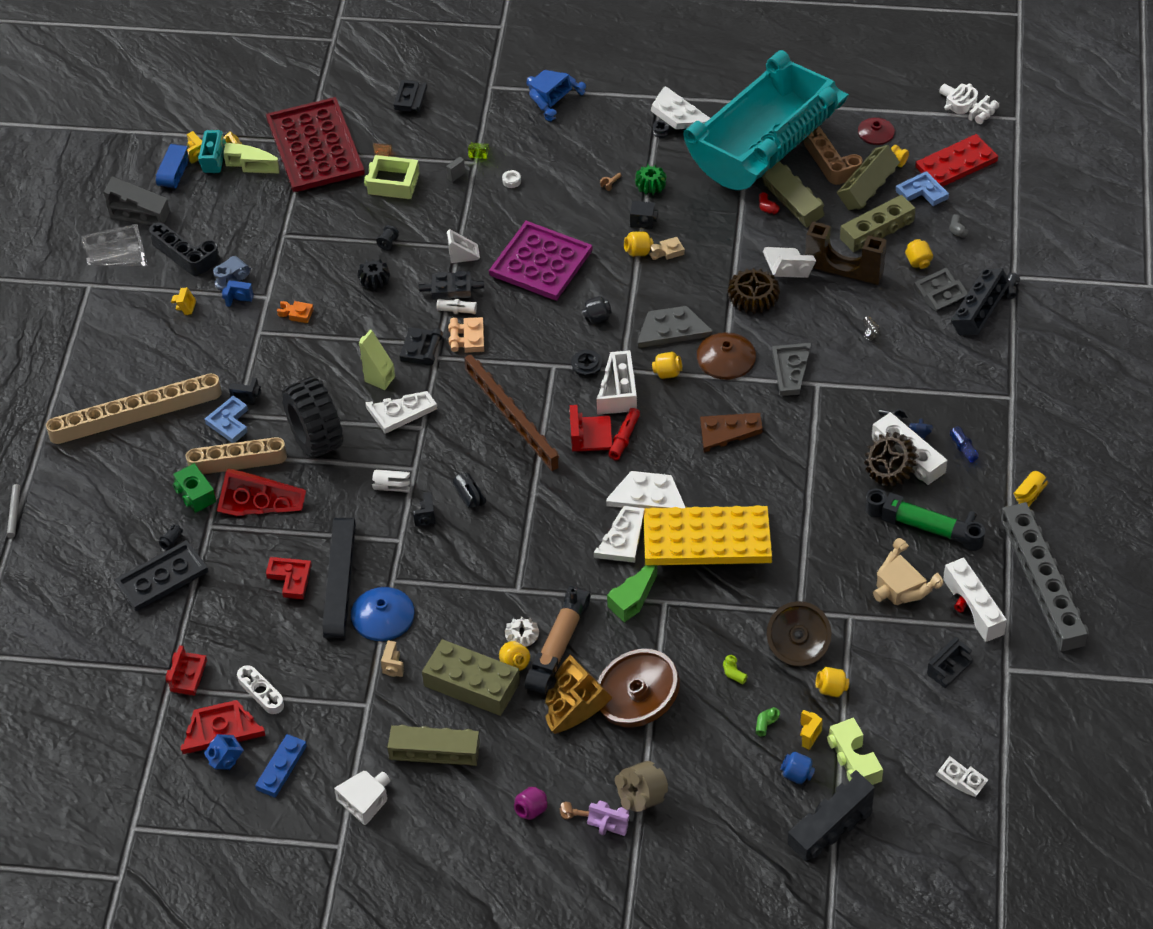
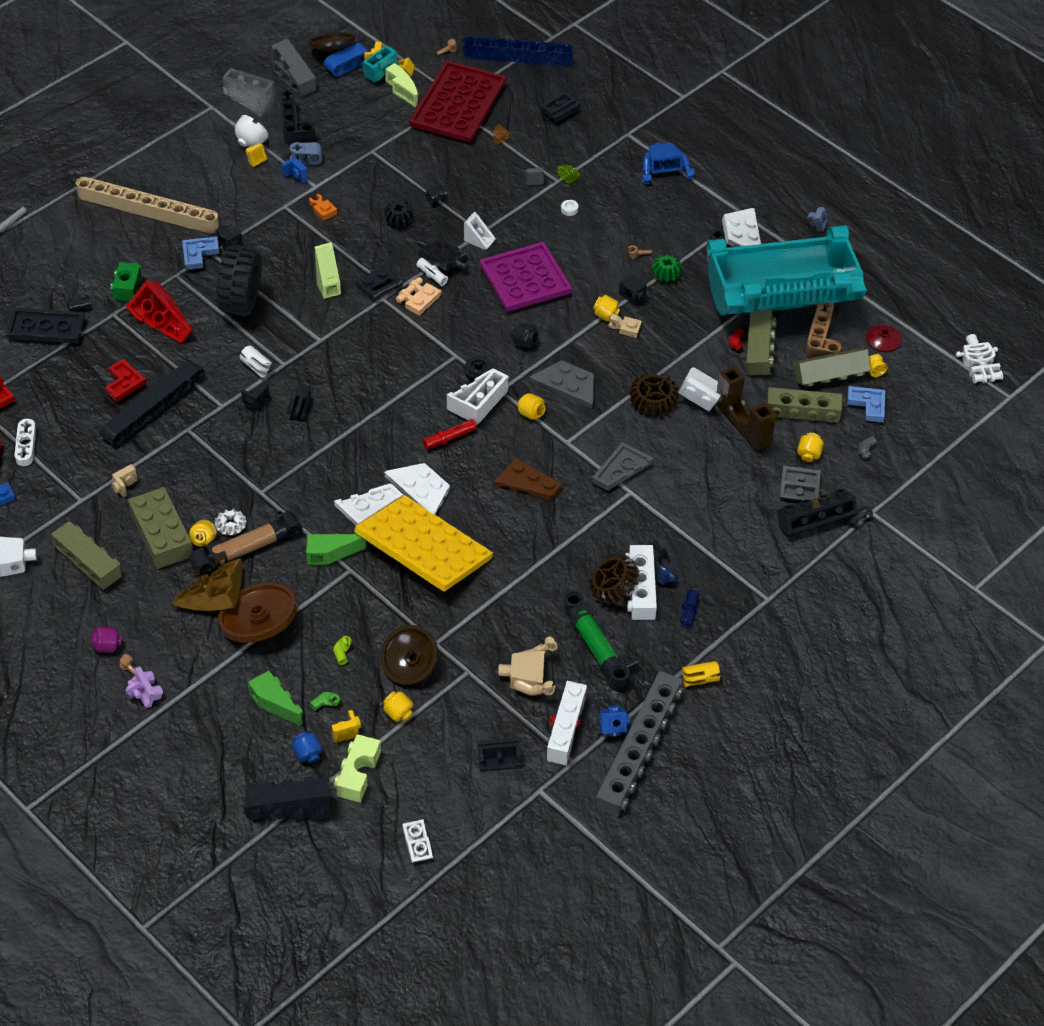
camera: 35 degrees right, 0 degrees up
(144, 157) = (332, 42): none -> dark brown dish
(159, 284) = (249, 132): none -> white cylinder
(238, 455) = (176, 278): tan beam -> none
(253, 99) = (451, 46): none -> medium nougat hand
(319, 69) = (517, 50): none -> clear blue beam
(384, 621) = (156, 447): blue dish -> none
(392, 188) = (490, 167): yellowish green window -> none
(396, 413) = (312, 318): white wing -> none
(511, 412) = (387, 372): reddish brown plate -> none
(589, 432) = (422, 415): red bracket -> none
(641, 786) = (182, 679): dark tan brick -> none
(724, 748) = (271, 697): none -> bright green slope
(726, 63) = (819, 219): none -> sand blue tile
(726, 356) = (585, 428): reddish brown dish -> none
(872, 328) = (714, 480): clear smoke arm -> none
(957, 160) = (921, 398): red plate -> none
(1008, 572) = (606, 719): none -> blue brick

